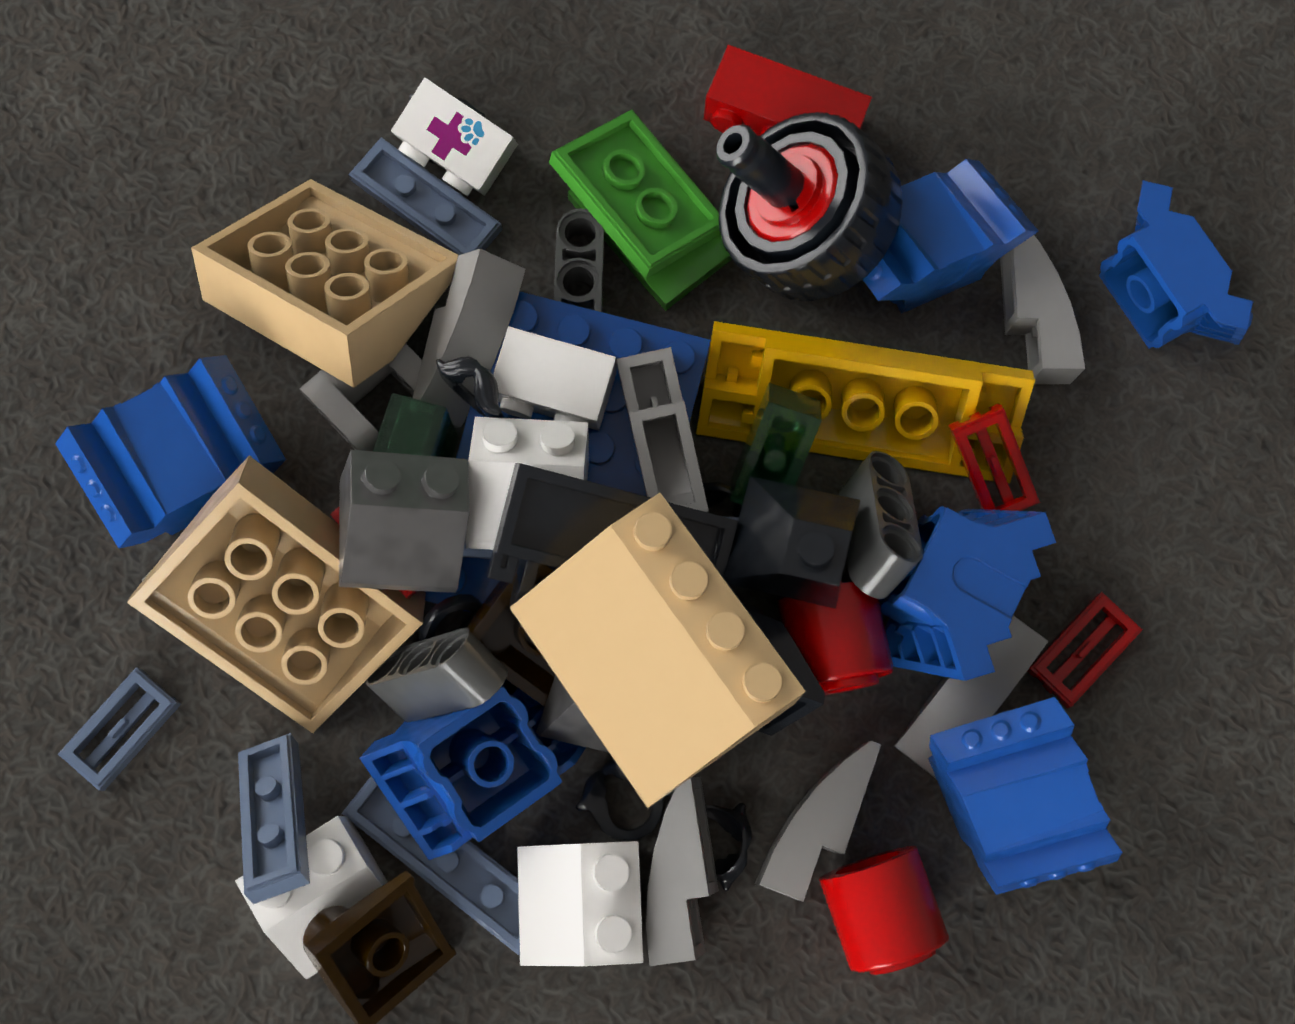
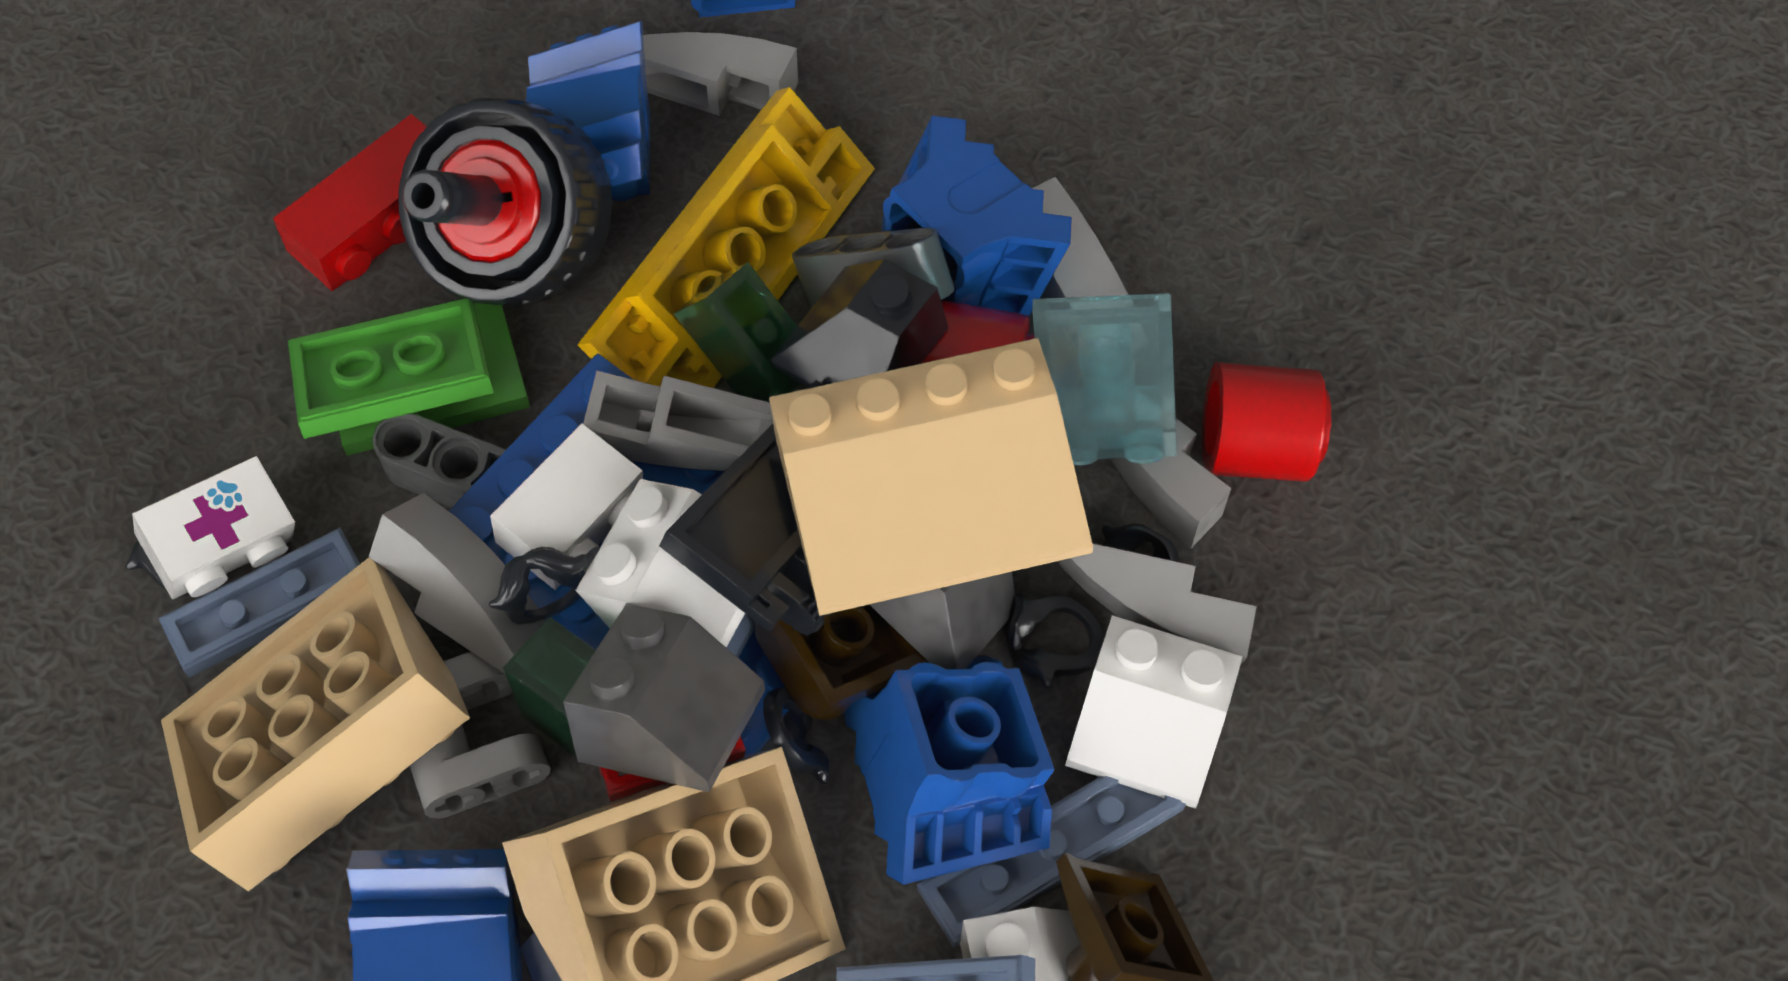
camera: 65 degrees left, 15 degrees down
(438, 676) = (851, 748): dark grey beam -> none
(825, 764) = (1112, 374): none -> clear light blue slope
(978, 425) = (850, 172): red tile -> none
(1023, 796) = (1204, 243): blue slope -> none
(1053, 682) = (1090, 208): red tile -> none

